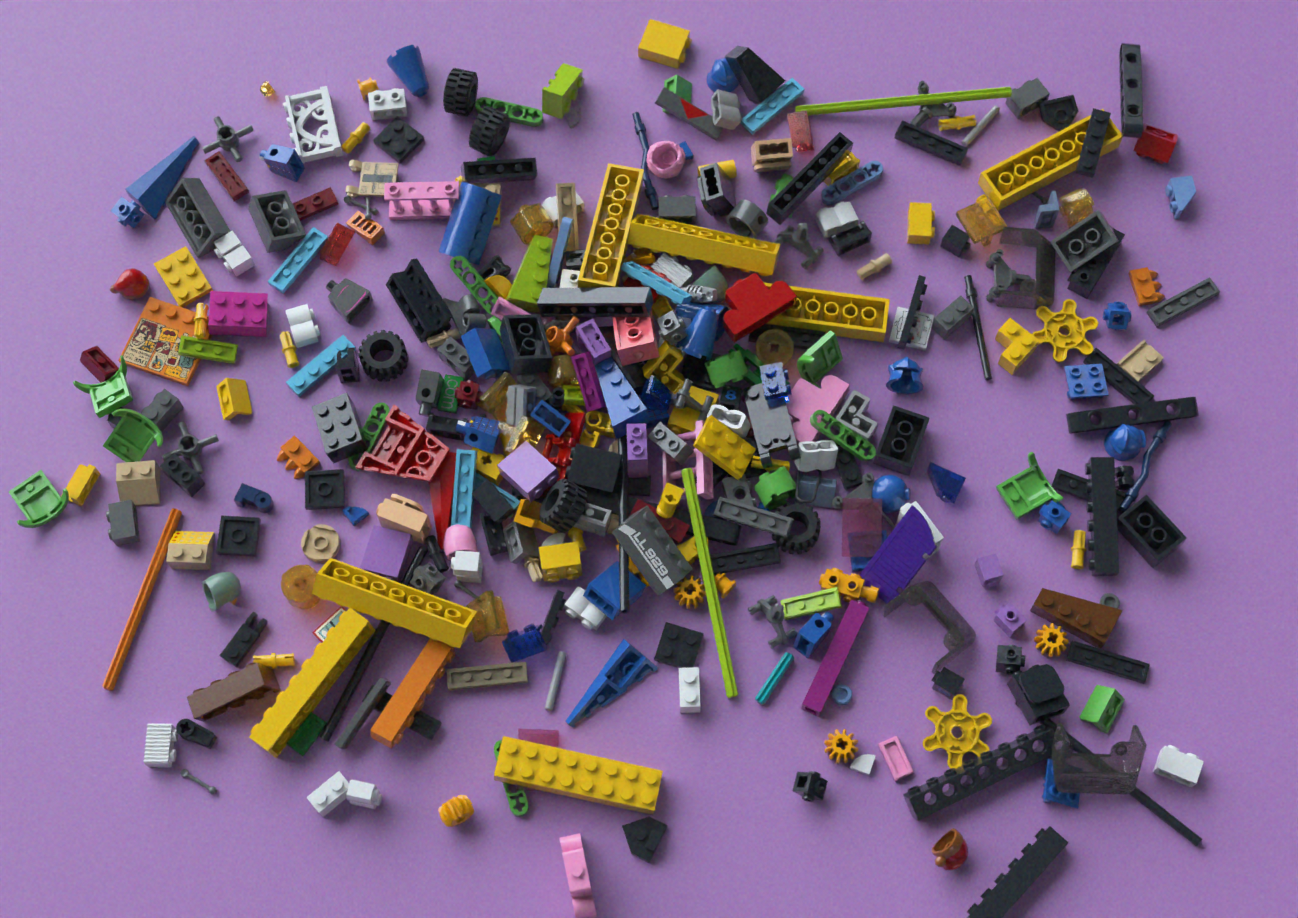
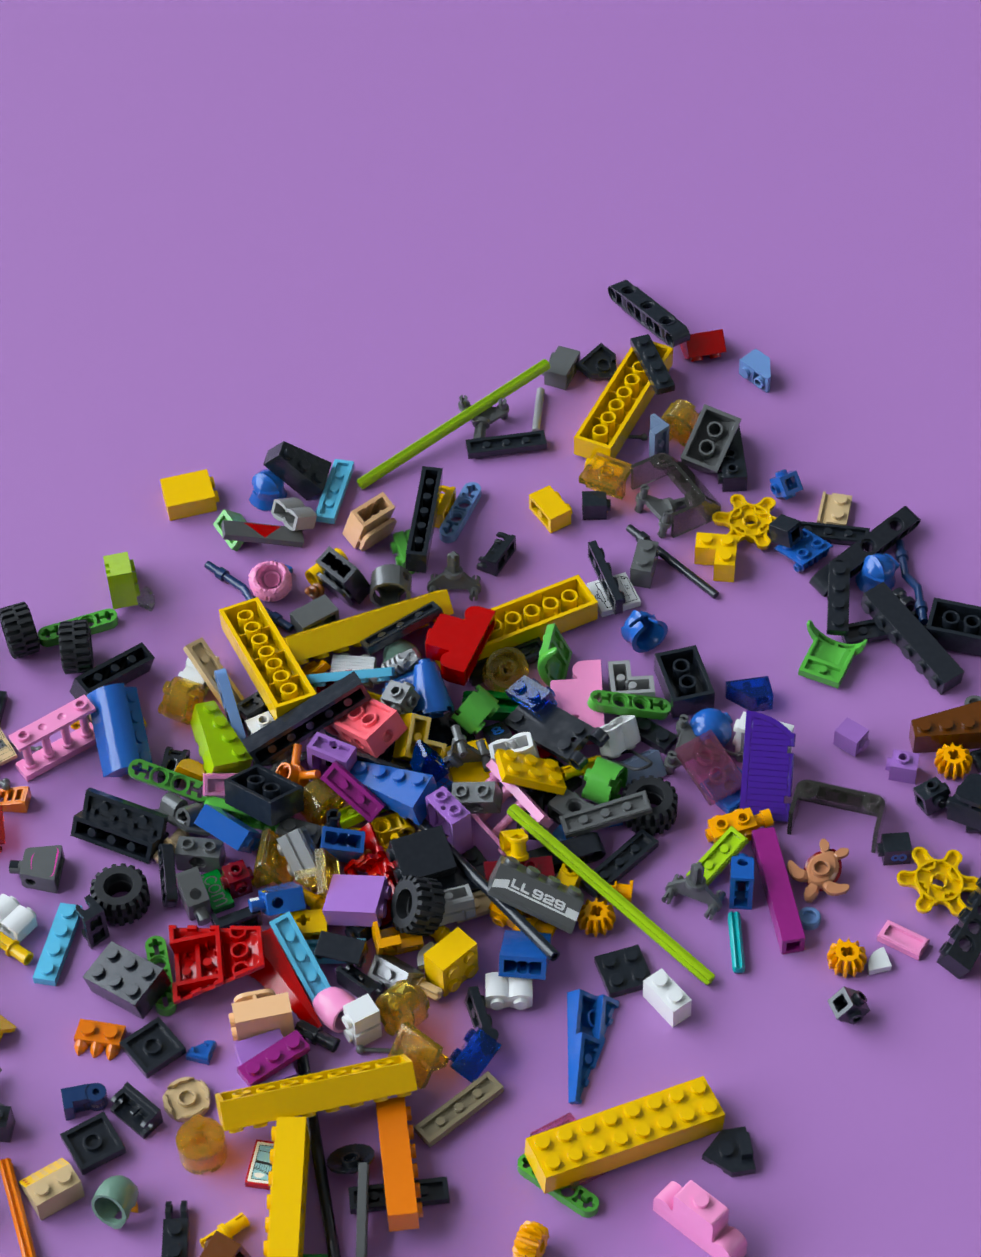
camera: 35 degrees left, 20 degrees down
(281, 530) = (136, 1110): none -> black hinge
(388, 556) = (273, 1059): none -> magenta plate
(389, 664) = (346, 1158): none -> black dish
(424, 360) = (167, 875): none -> black beam
(427, 579) = (327, 1057): dark grey brick -> none
(500, 575) = (402, 1004): none -> clear yellow brick
(555, 680) = (529, 1073): light grey bar -> none
(692, 187) = (315, 591): none -> dark orange hair
(721, 265) = (401, 628): none -> black tile
(800, 131) = (372, 487): clear red hinge -> none
(836, 219) = (472, 544): white brick -> none
(874, 266) = (538, 564): tan axle -> none
(876, 666) = (821, 872): none -> nougat animal
(957, 122) = (516, 417): yellow pin -> none
(1053, 516) = (869, 664): blue brick -> none
(1073, 445) = (838, 598): none -> black plate
(1078, 549) = (912, 679): yellow axle -> none
(1079, 360) = (785, 531): none -> black brick
(1144, 287) = (786, 454): orange plate -> none
(1183, 302) = (830, 448): dark grey tile -> none

